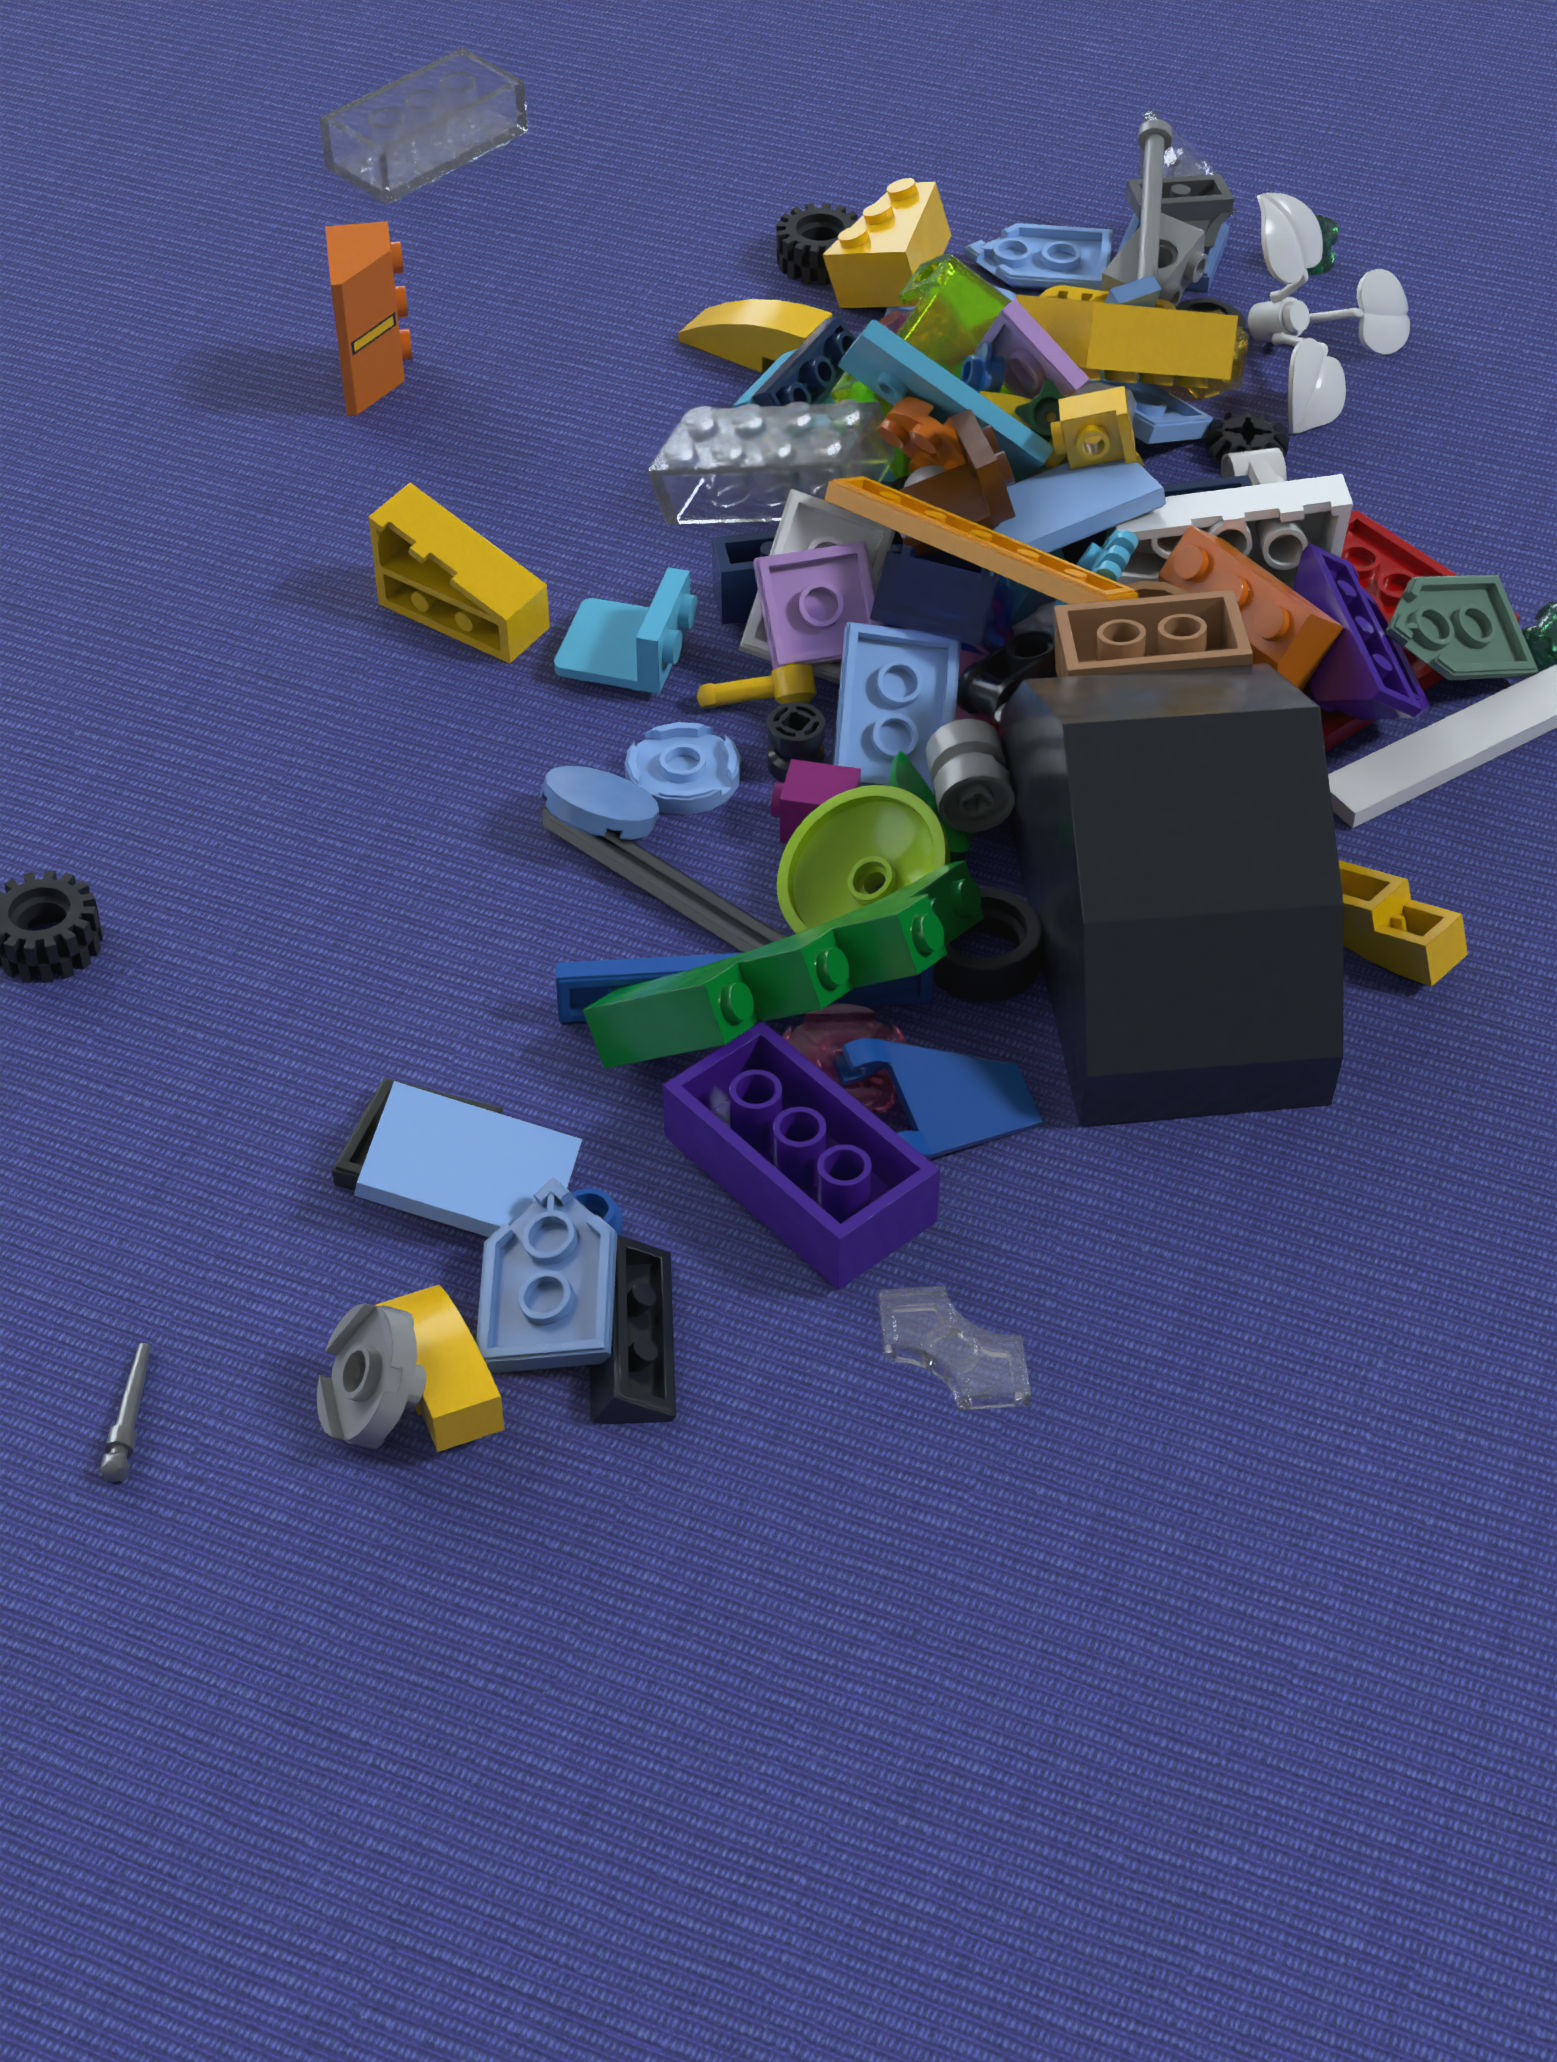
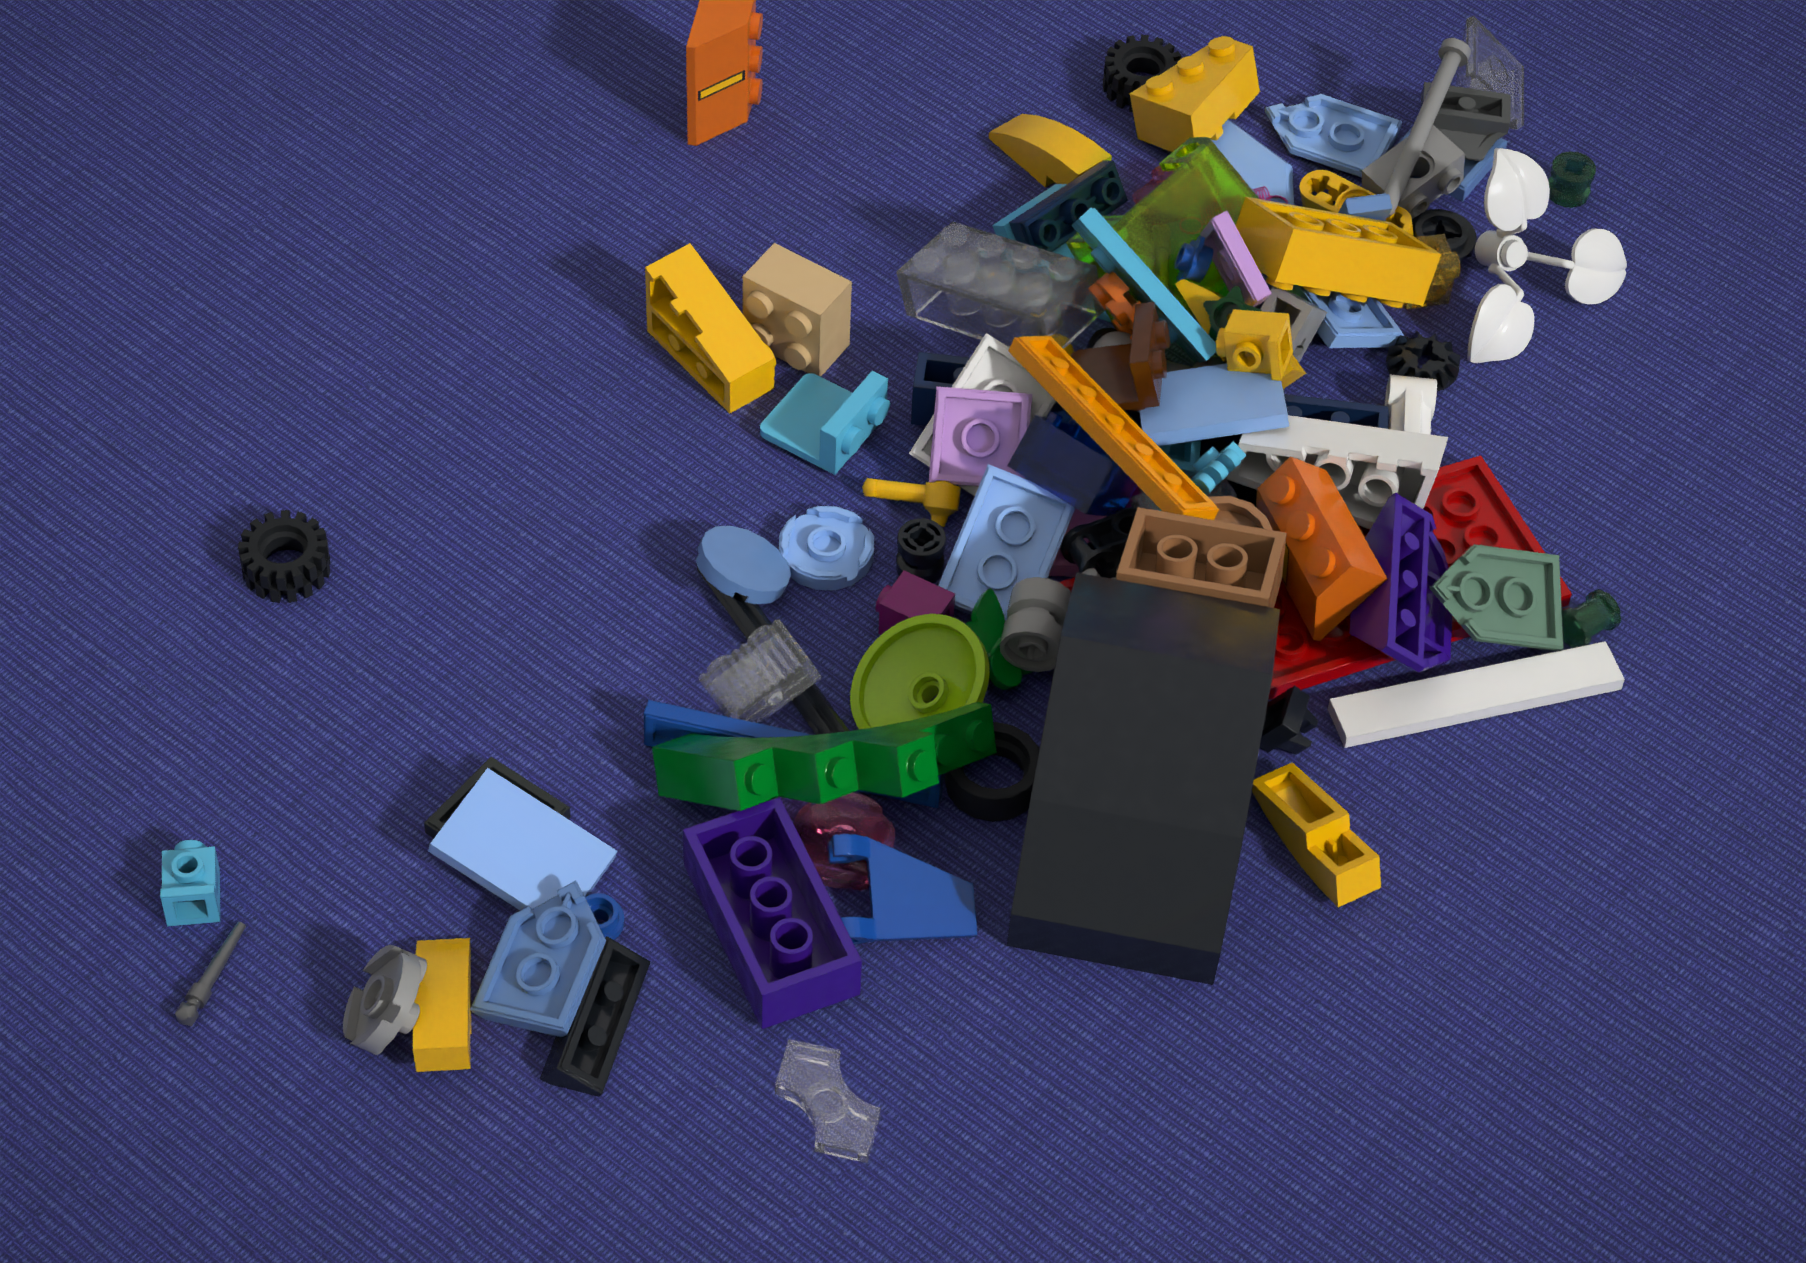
camera: 15 degrees right, 5 degrees up
(59, 1300) = (190, 875): none -> medium azure brick
(555, 528) = (798, 309): none -> tan brick
(674, 905) = (760, 674): none -> clear brick

